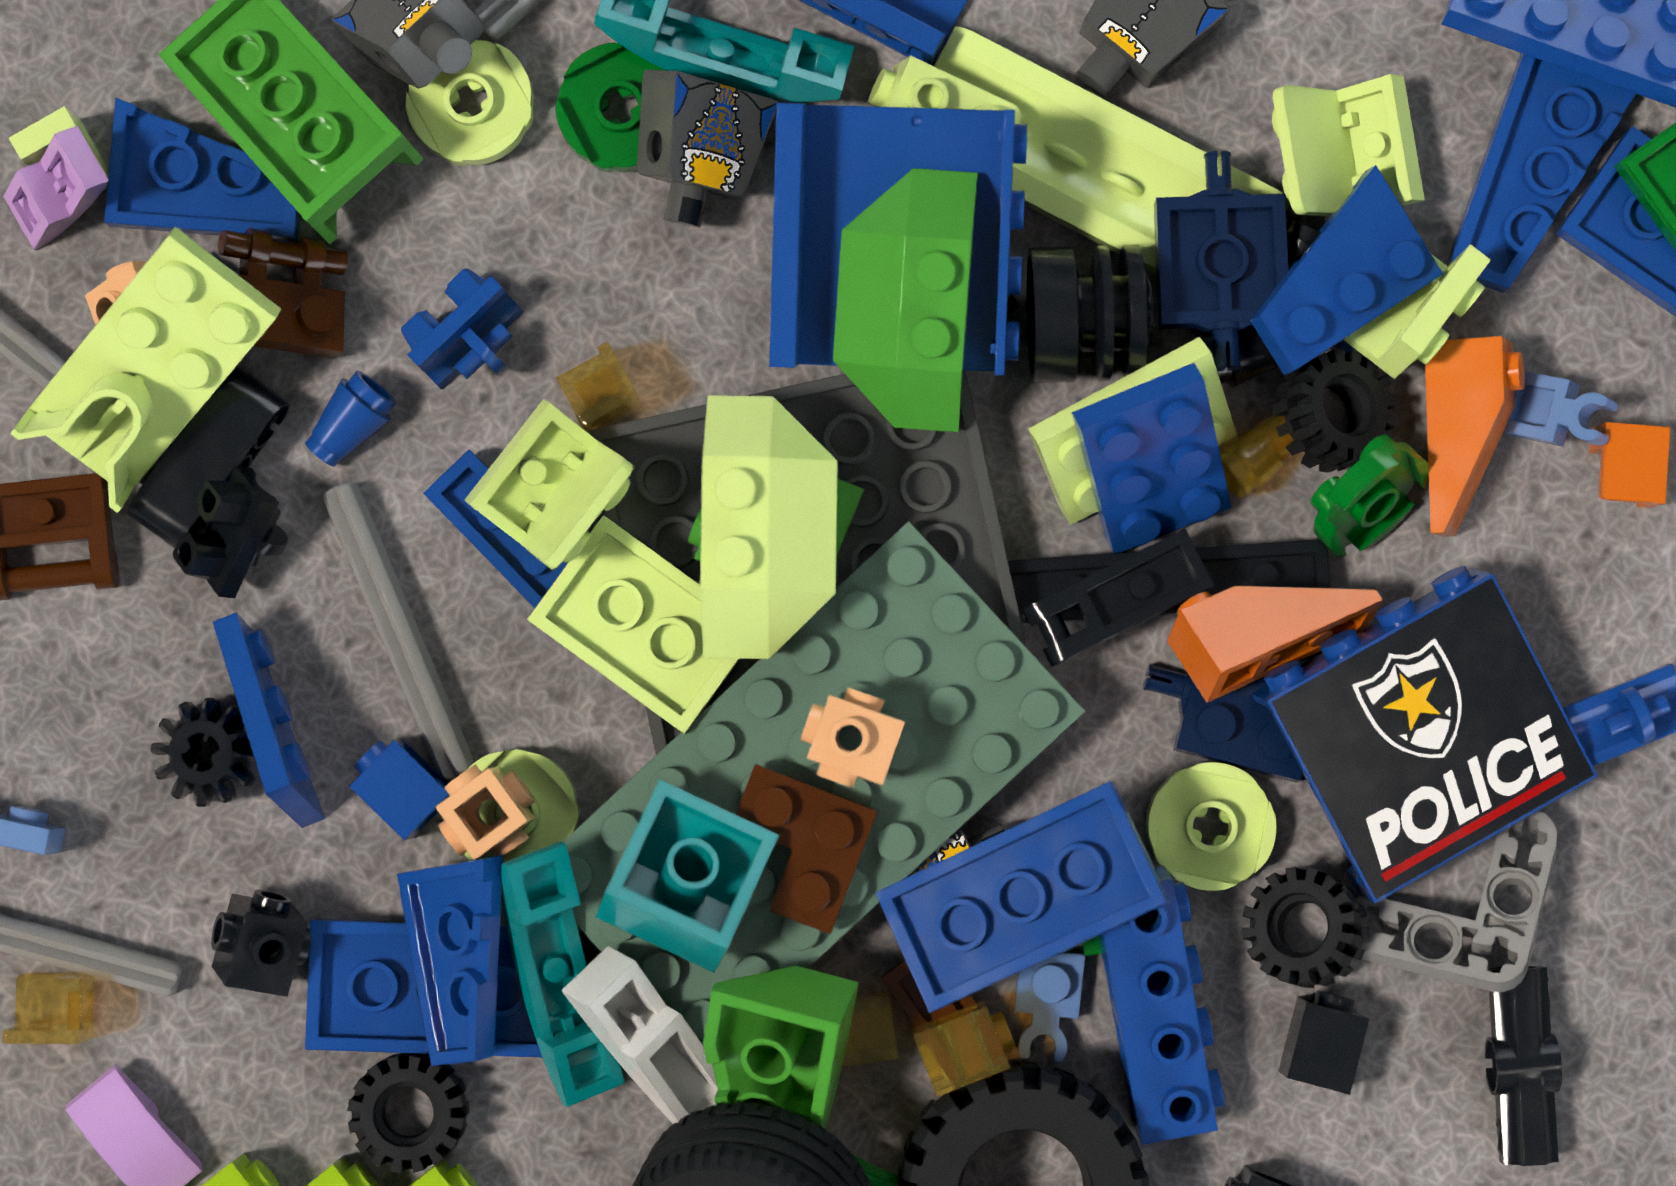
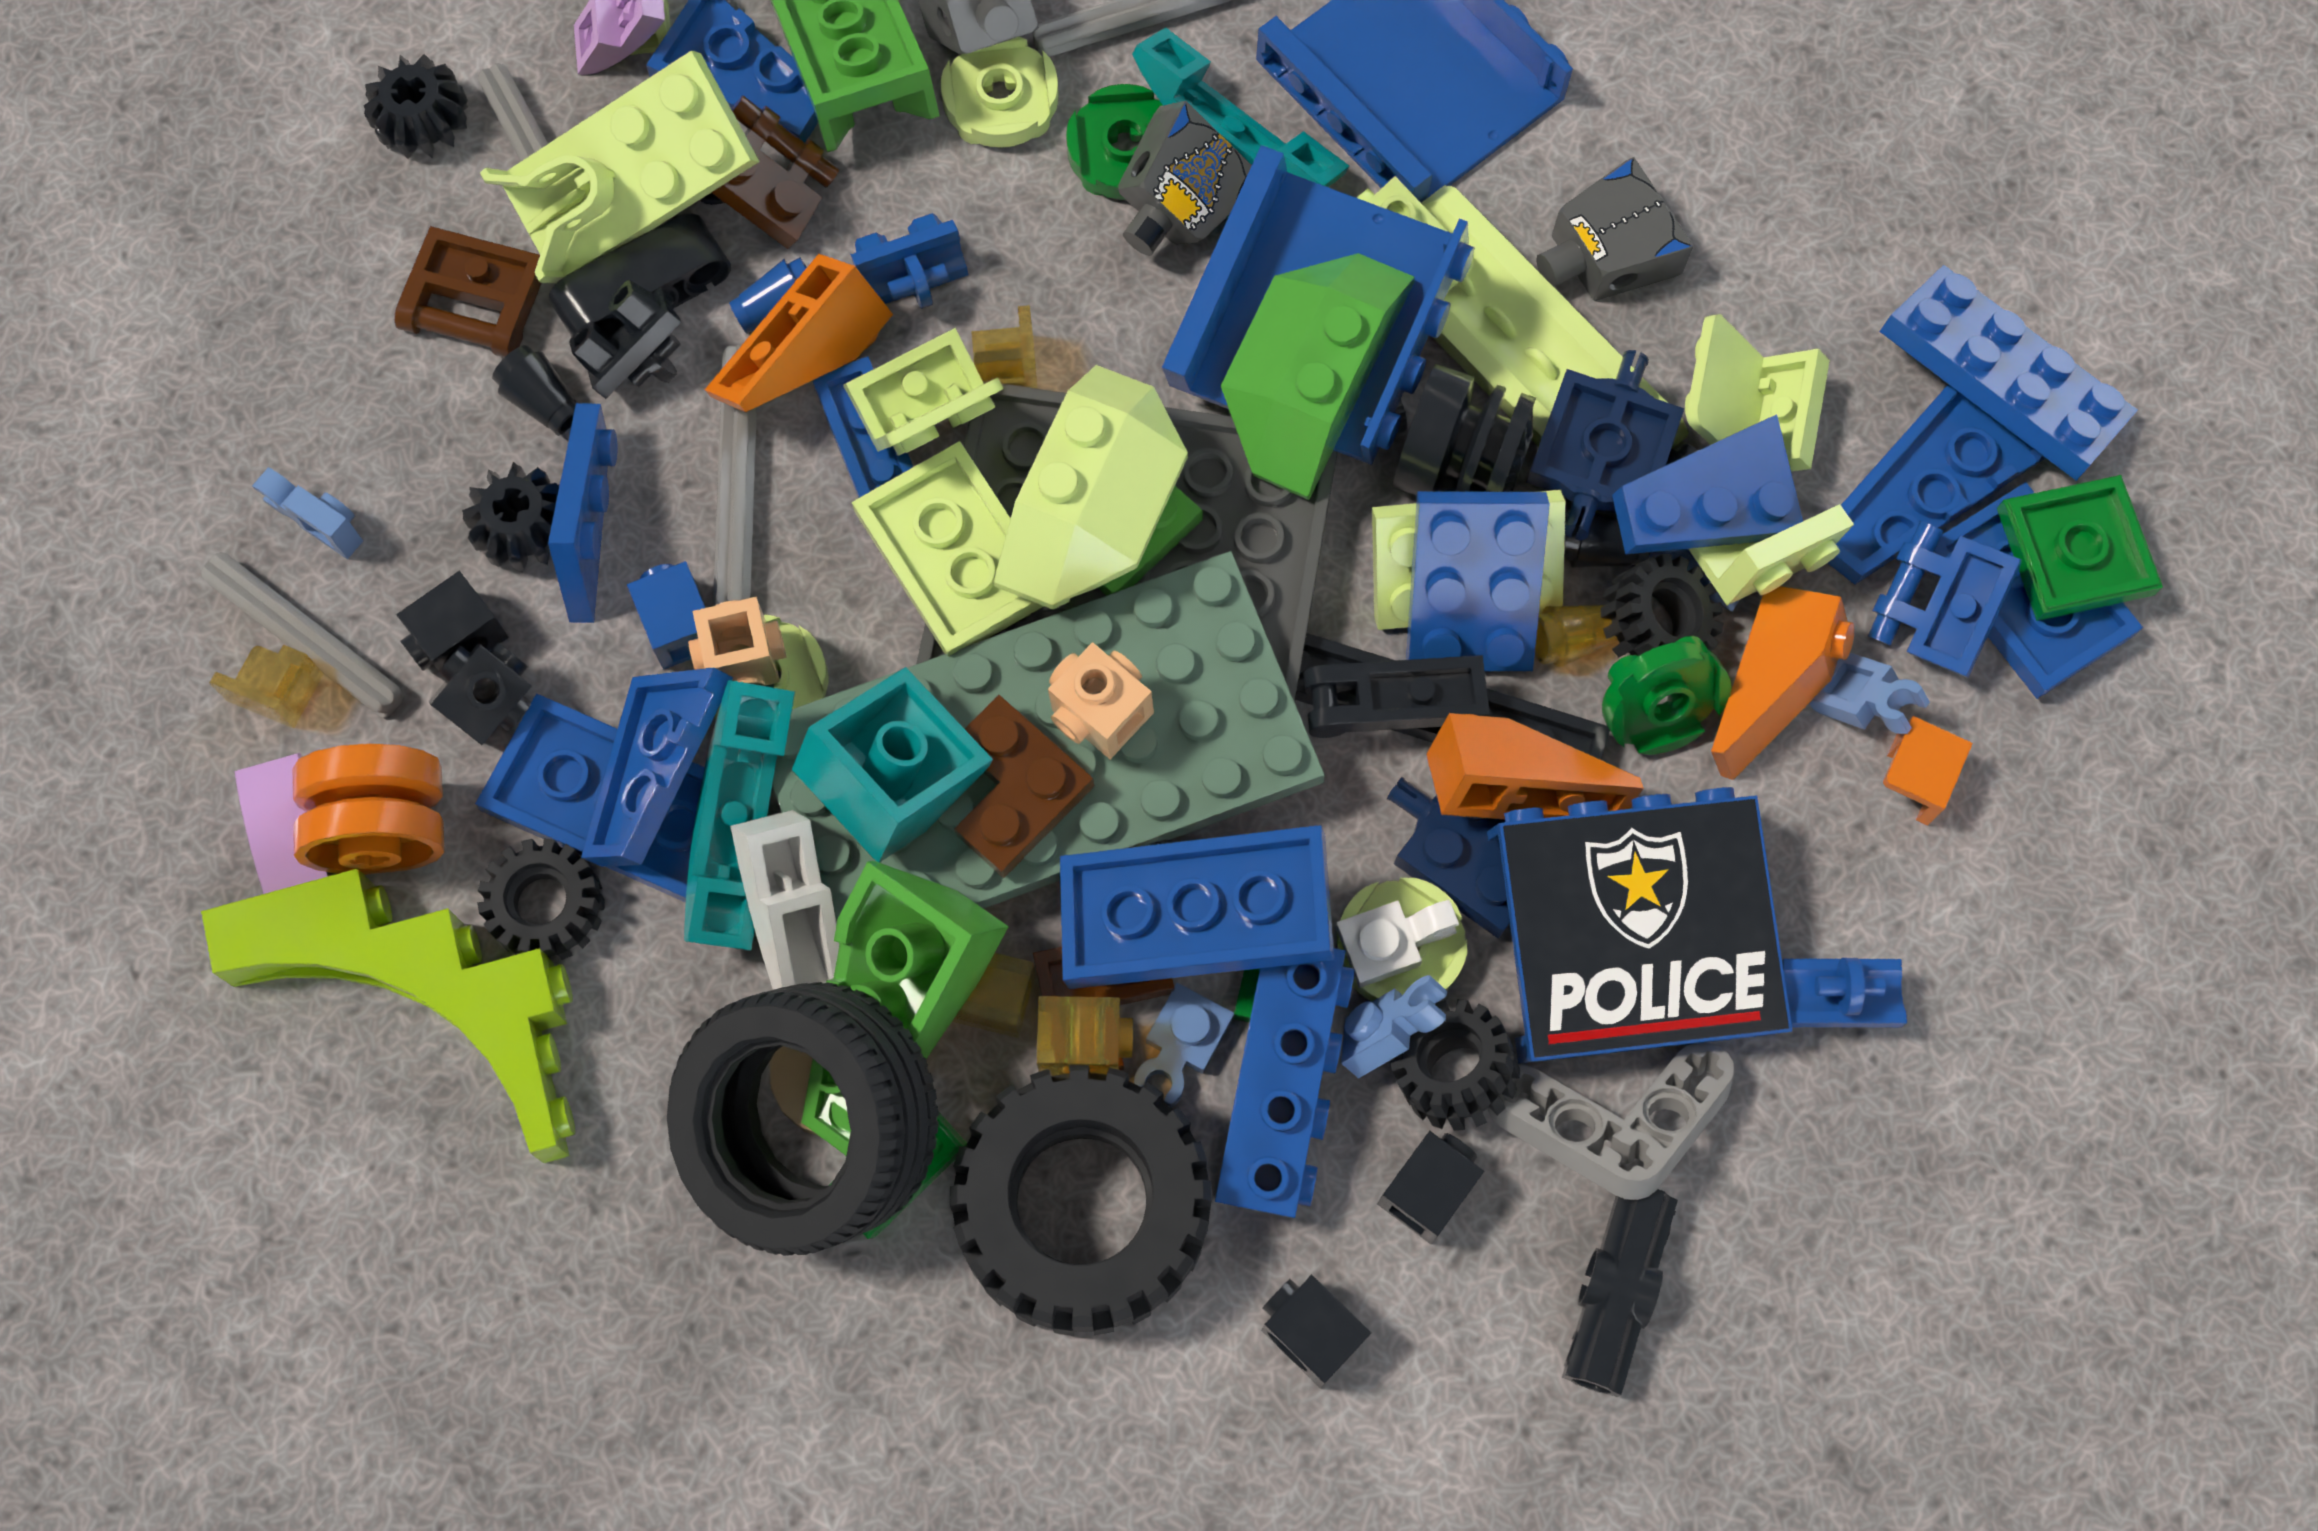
camera: 20 degrees right, 15 degrees down
(162, 612) = (535, 388): none -> black cone
(196, 888) = (448, 619): none -> black brick
(216, 1107) = (368, 809): none -> orange wheel
(399, 464) = (809, 332): none -> orange slope
(1199, 841) = (1386, 943): none -> white plate
(1228, 917) = (1383, 1027): none -> medium blue plate
(1615, 288) = (1961, 607): none -> blue plate

